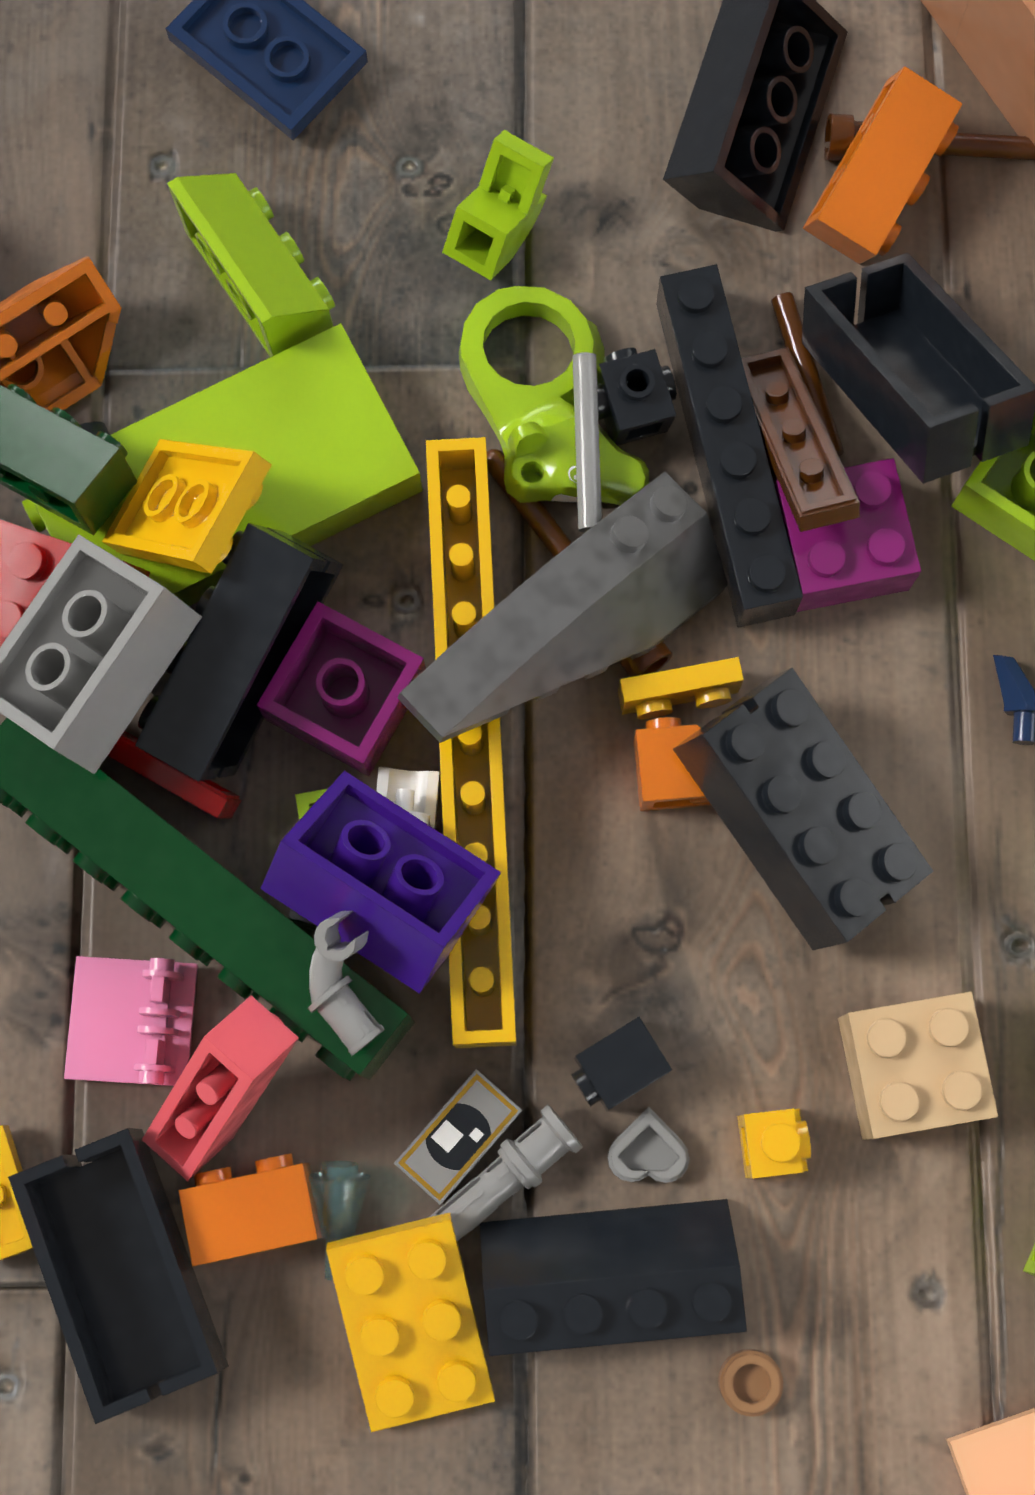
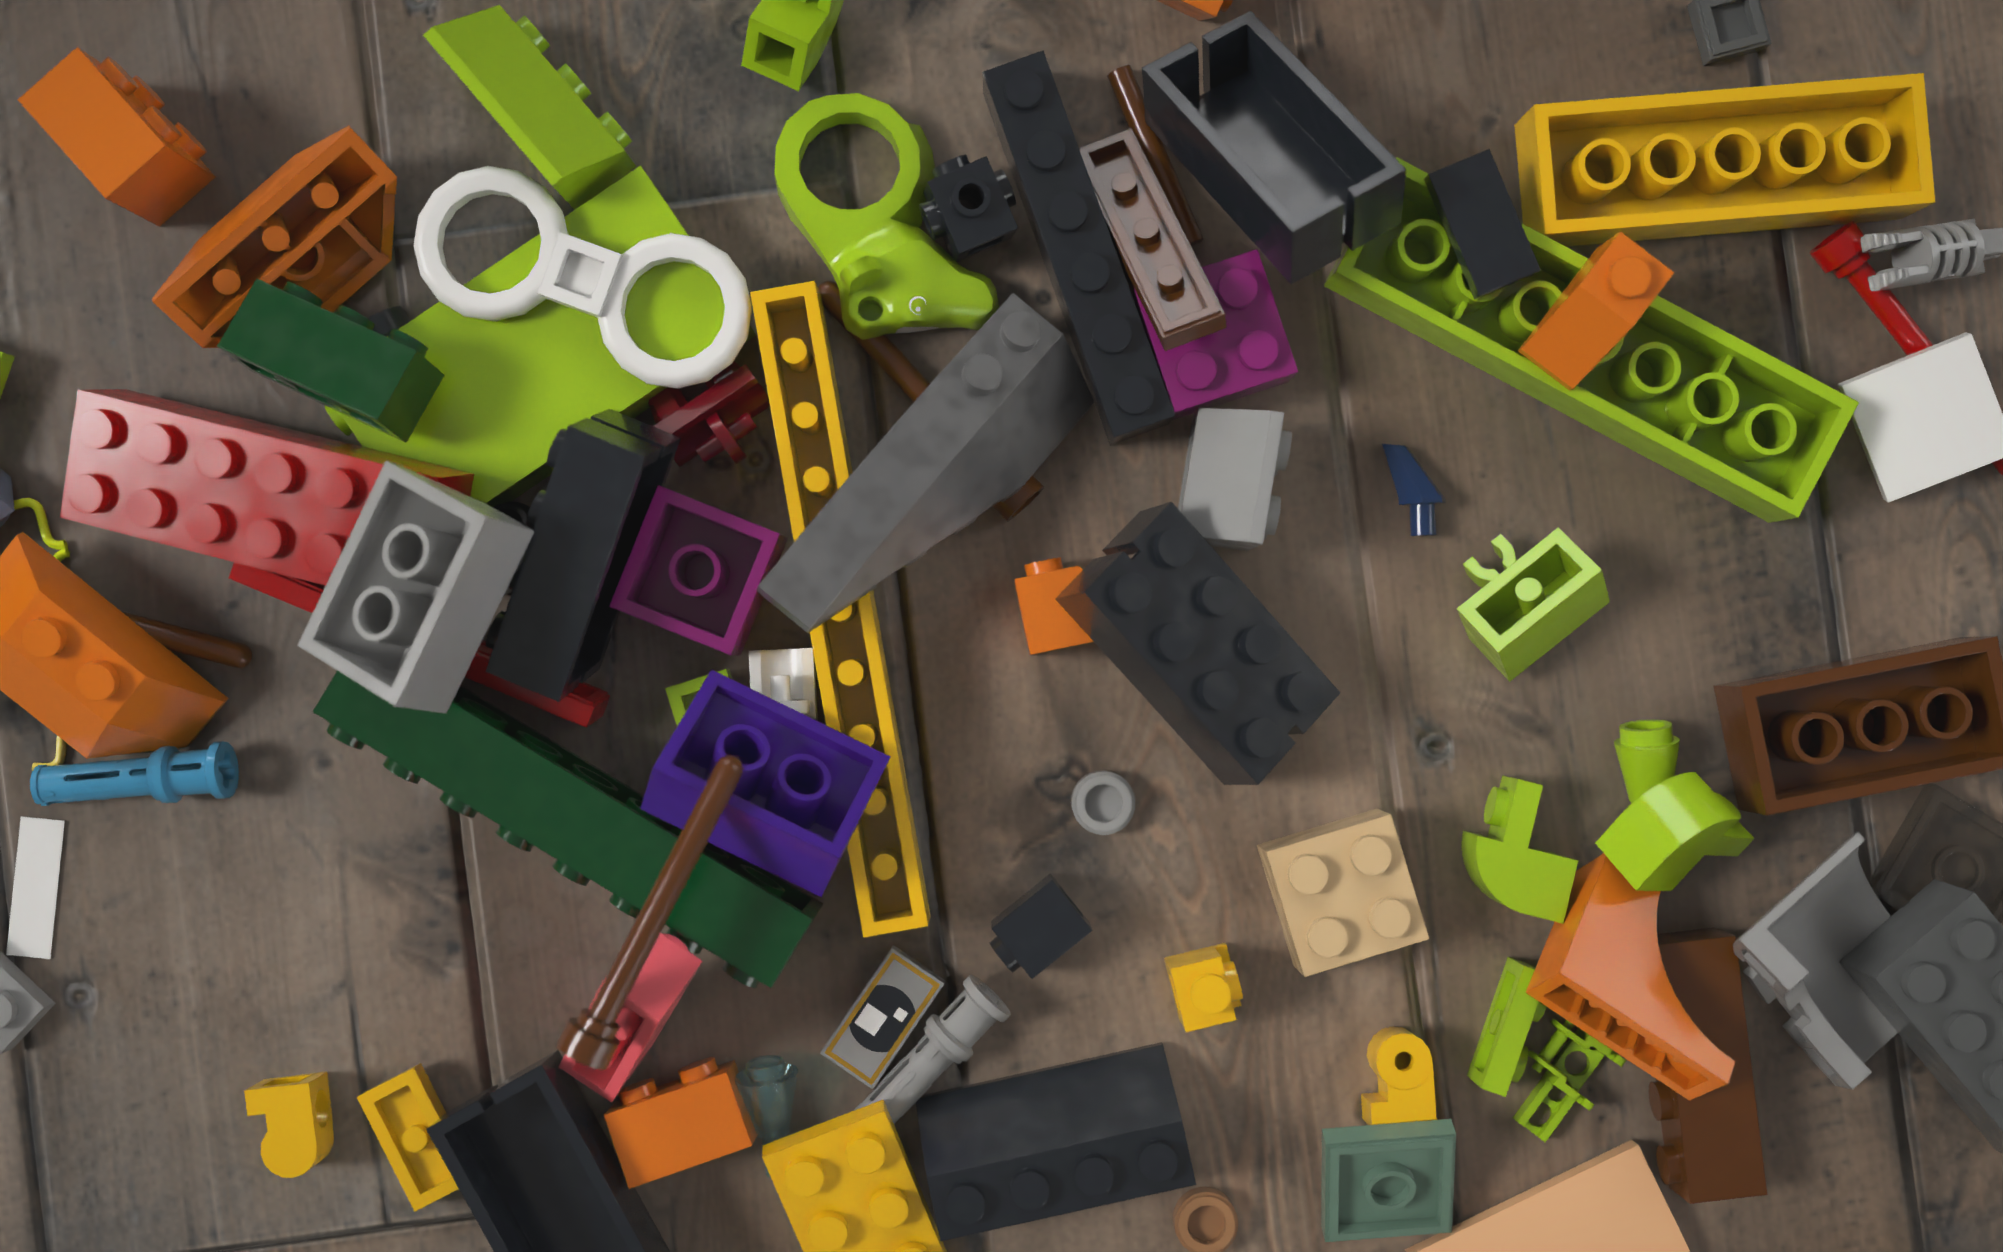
camera: 15 degrees left, 10 degrees up
(130, 1020) = (529, 943): bright pink hinge -> none
(188, 504) = (501, 404): yellow plate -> none
(190, 1079) = (592, 1035): none -> reddish brown piece
(276, 411) = (581, 276): none -> white bar
(331, 991) = (728, 910): light grey piece -> none
(377, 552) = (713, 418): none -> dark red hips
(587, 440) = (925, 269): light grey bar -> none
(648, 1150) = (1077, 1006): light grey tile -> none
(694, 956) = (1103, 802): none -> light grey tile
(704, 683) = (1082, 516): yellow plate -> none
(849, 656) = (1232, 475): none -> light grey slope
(936, 1359) = (1387, 1180): none -> sand green tile
(961, 1261) = (1403, 1078): none -> yellow leg

